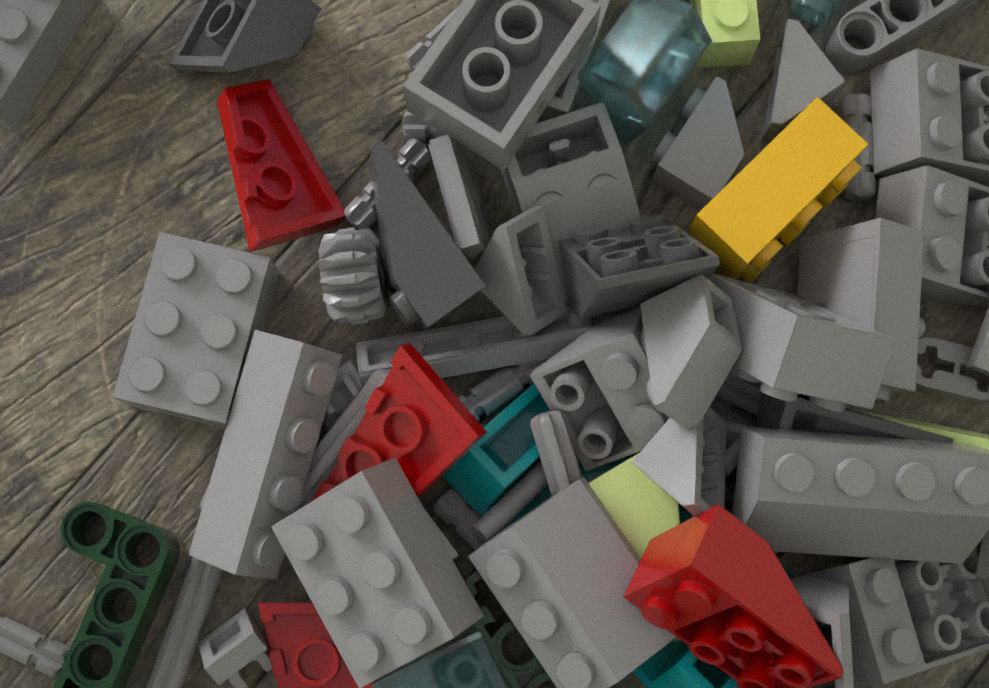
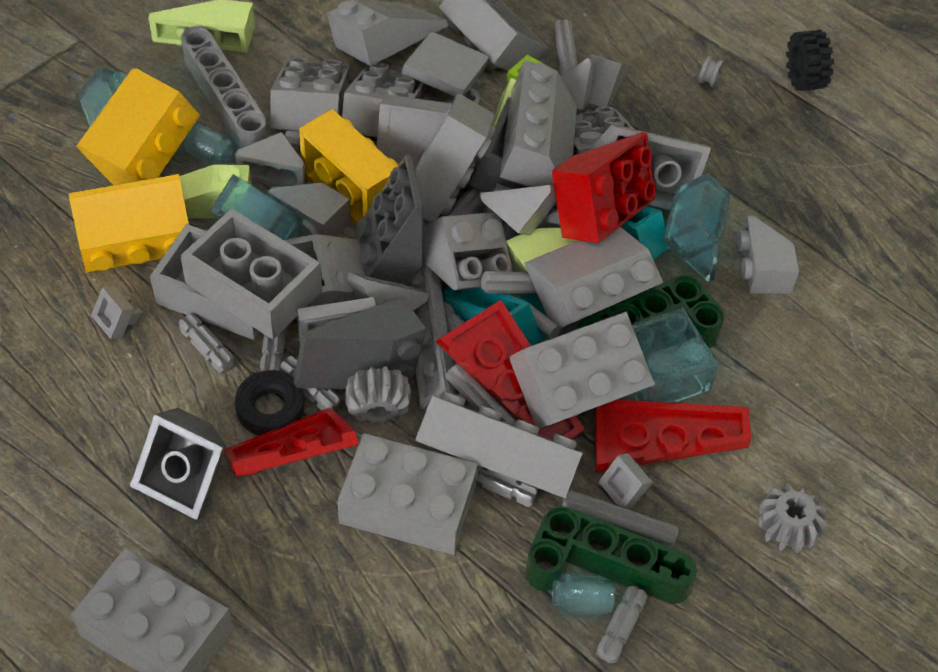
camera: 90 degrees left, 25 degrees down
(50, 585) = (583, 595): none -> clear light blue brick
(334, 105) = (268, 382): none -> black tyre
(689, 347) = (450, 187): light grey slope -> none

